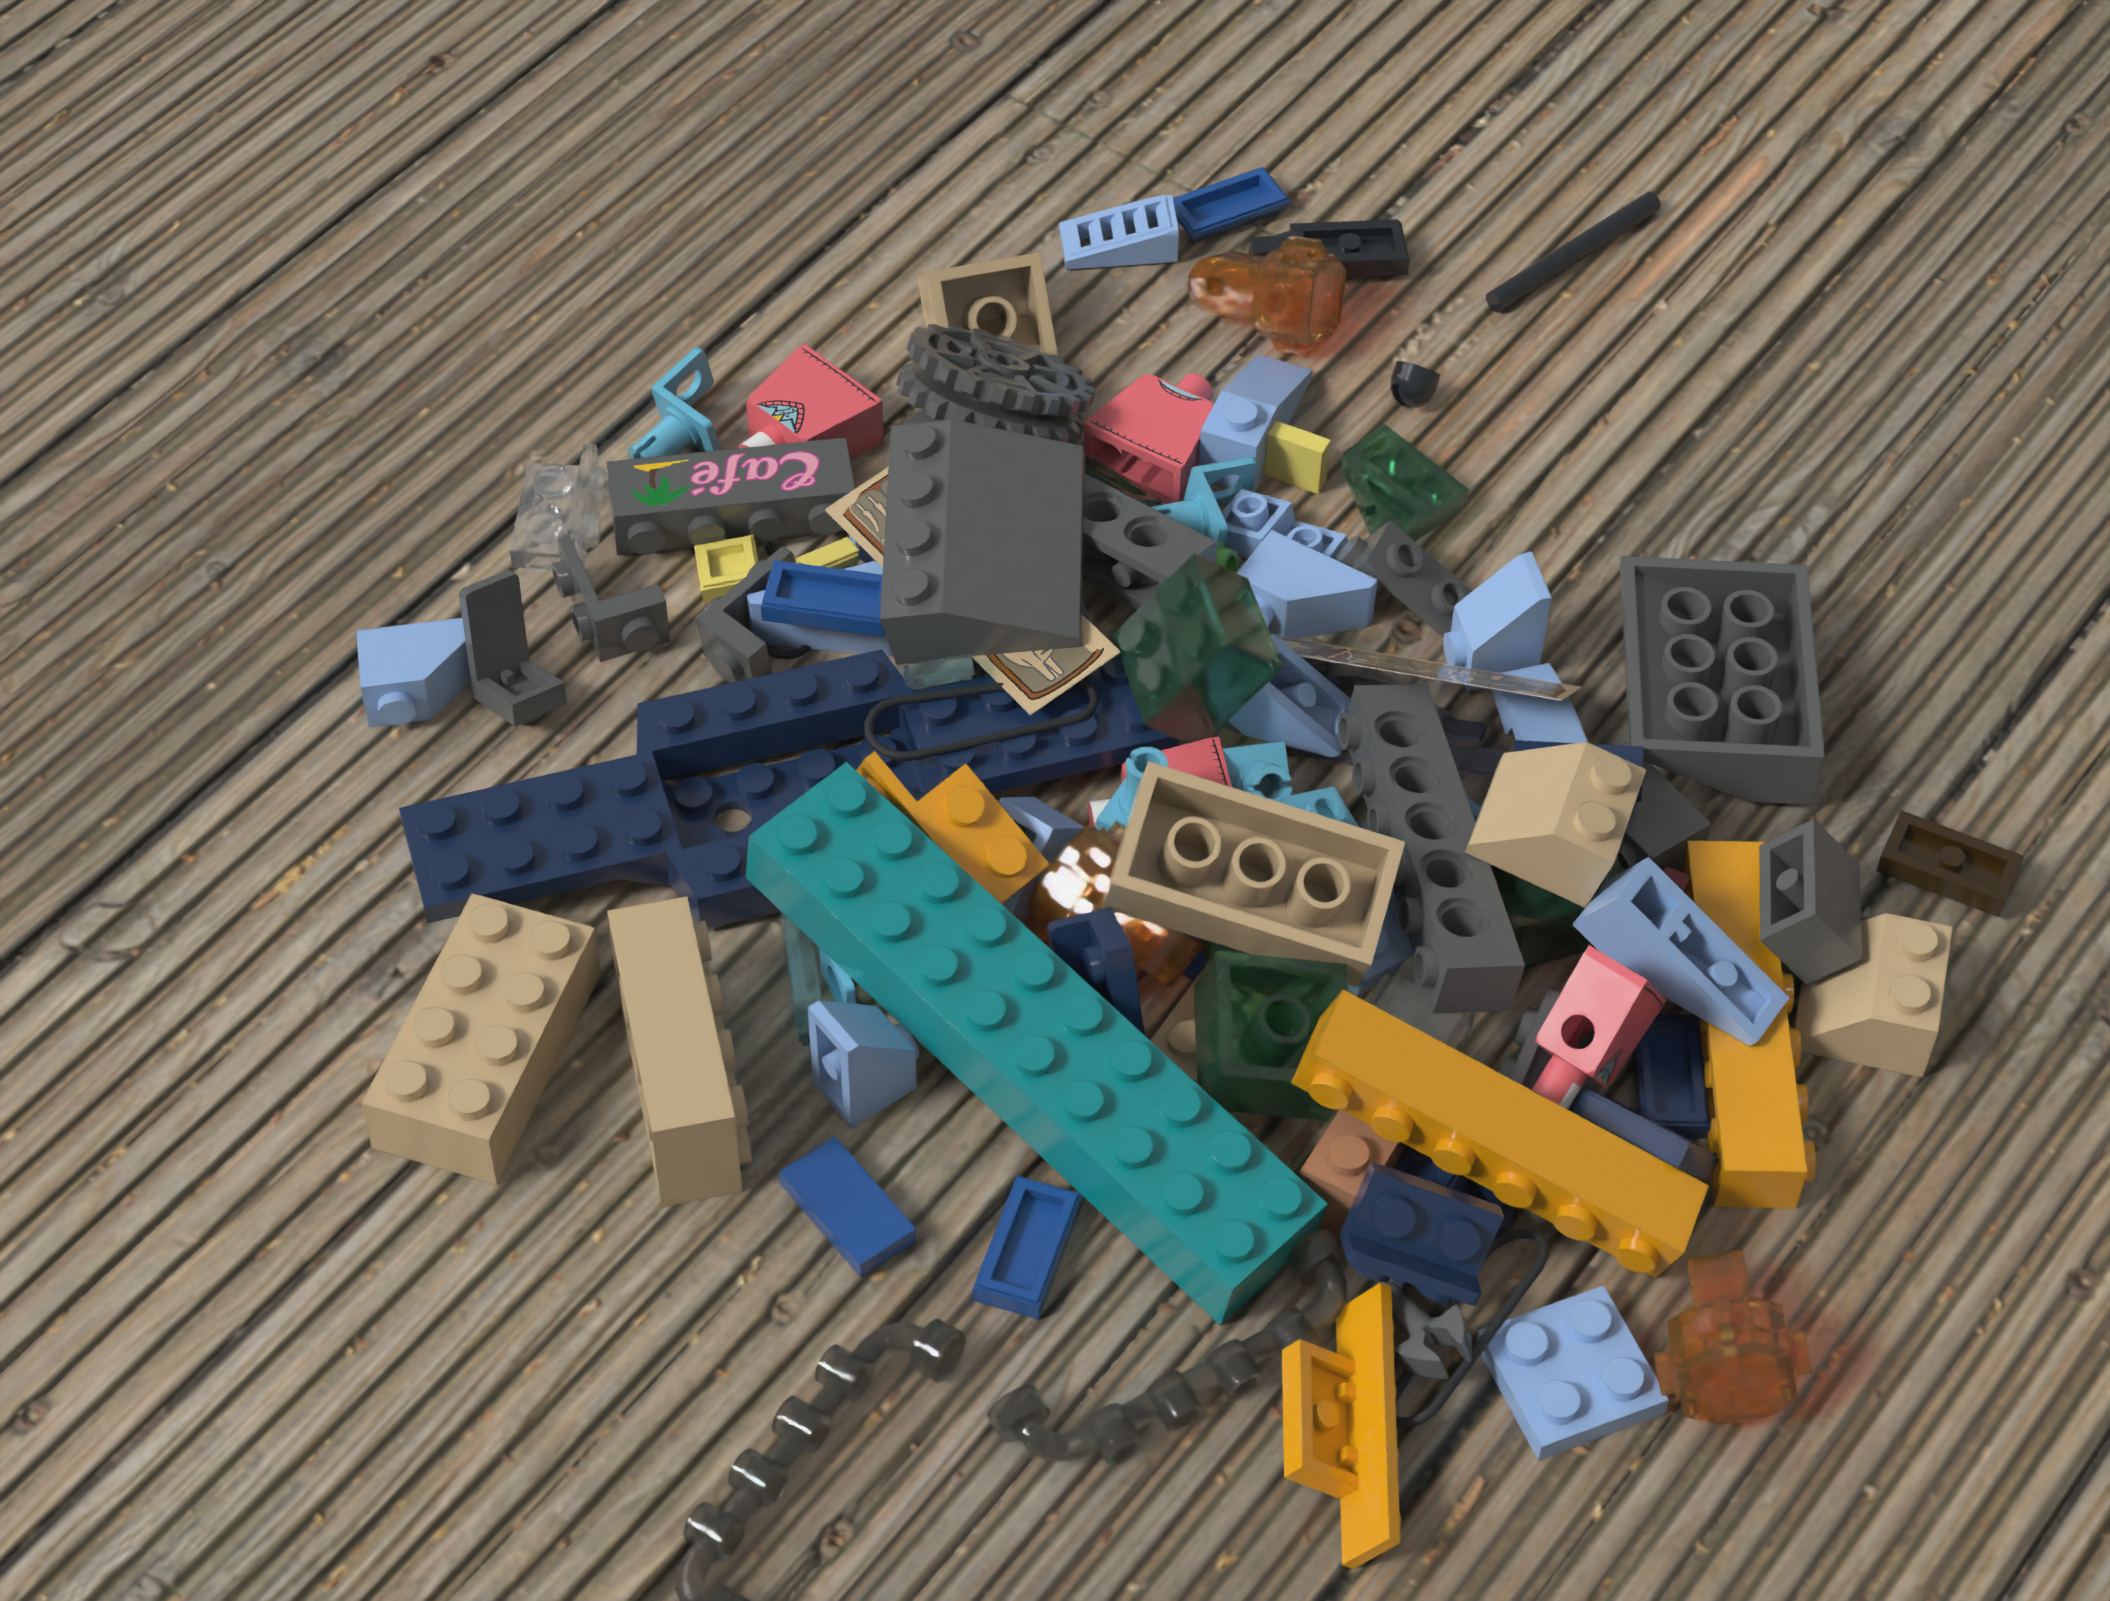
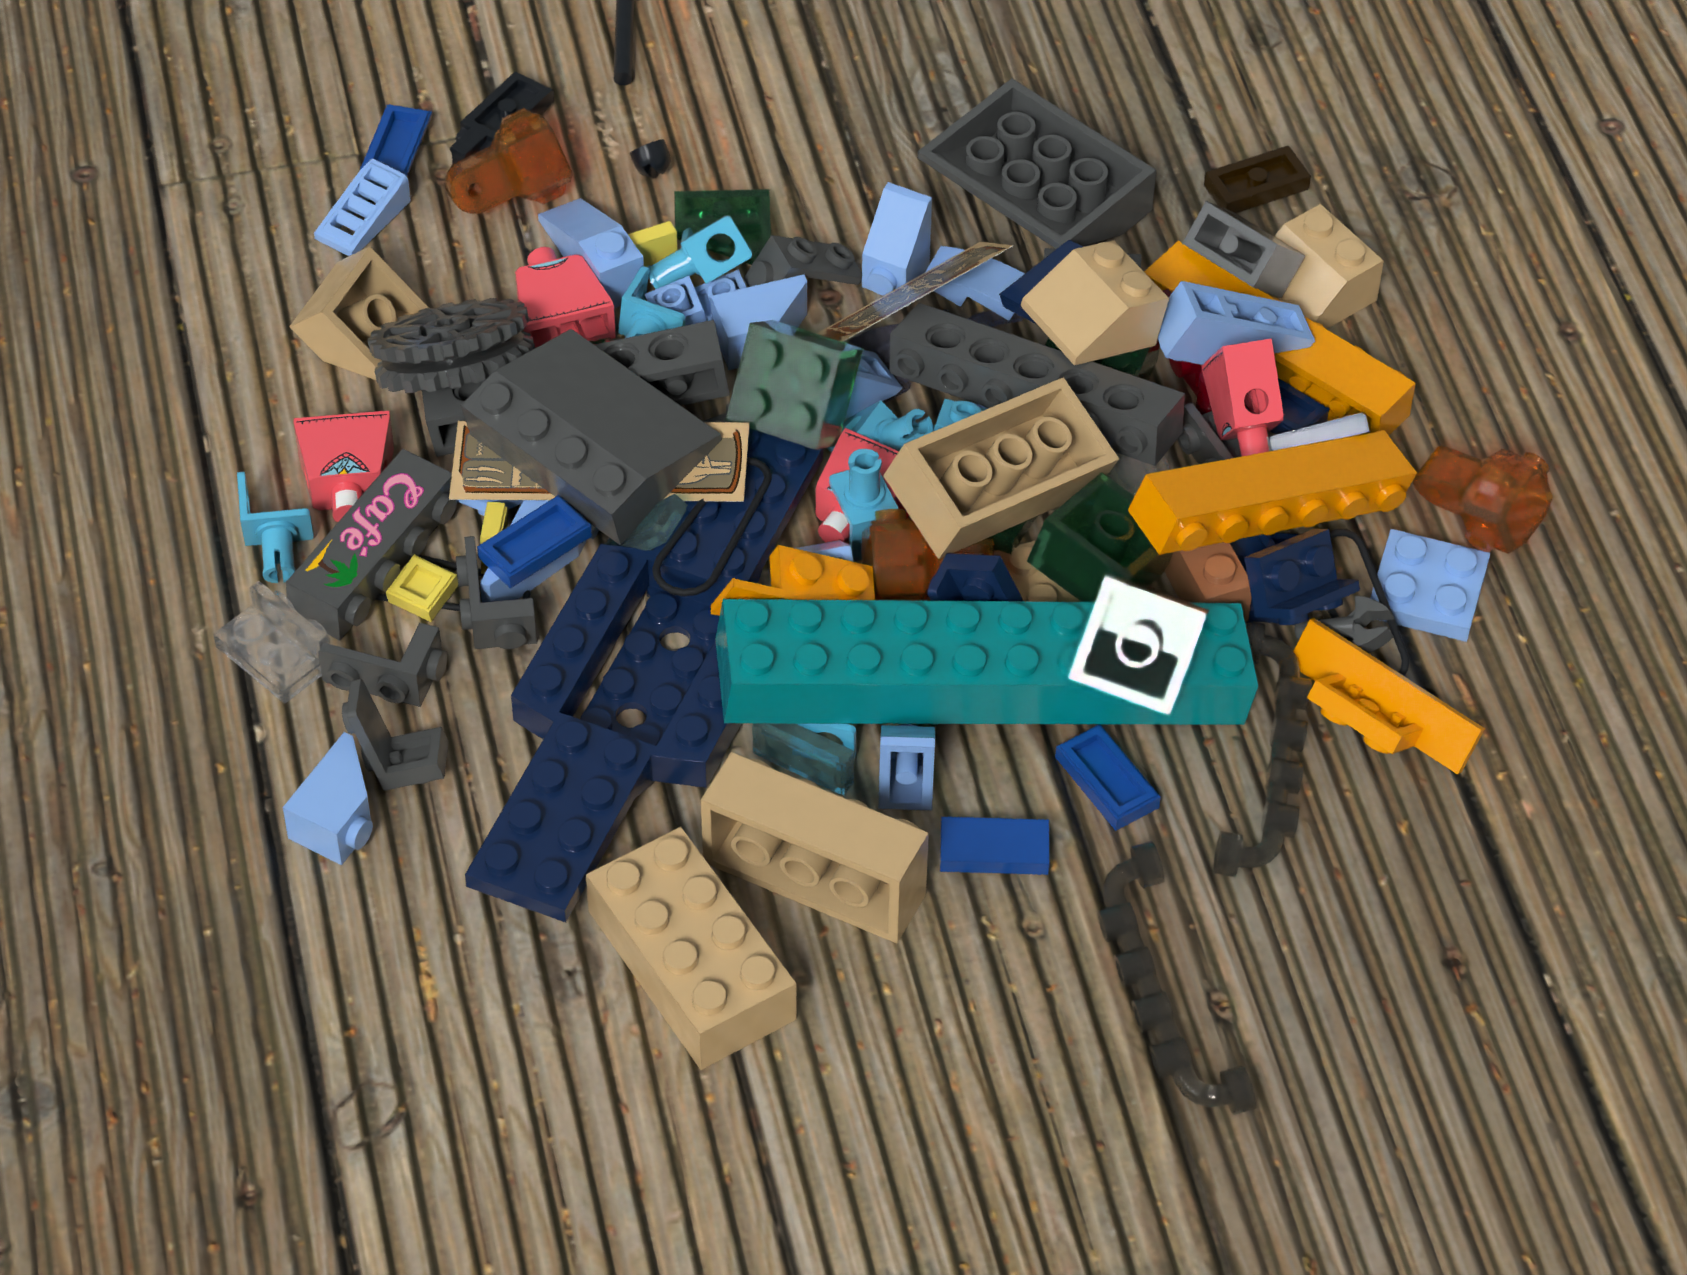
camera: 50 degrees left, 0 degrees up
(1143, 1133) = (1138, 644): none -> clear smoke slope
(1317, 488) = (695, 258): none -> medium azure bracket

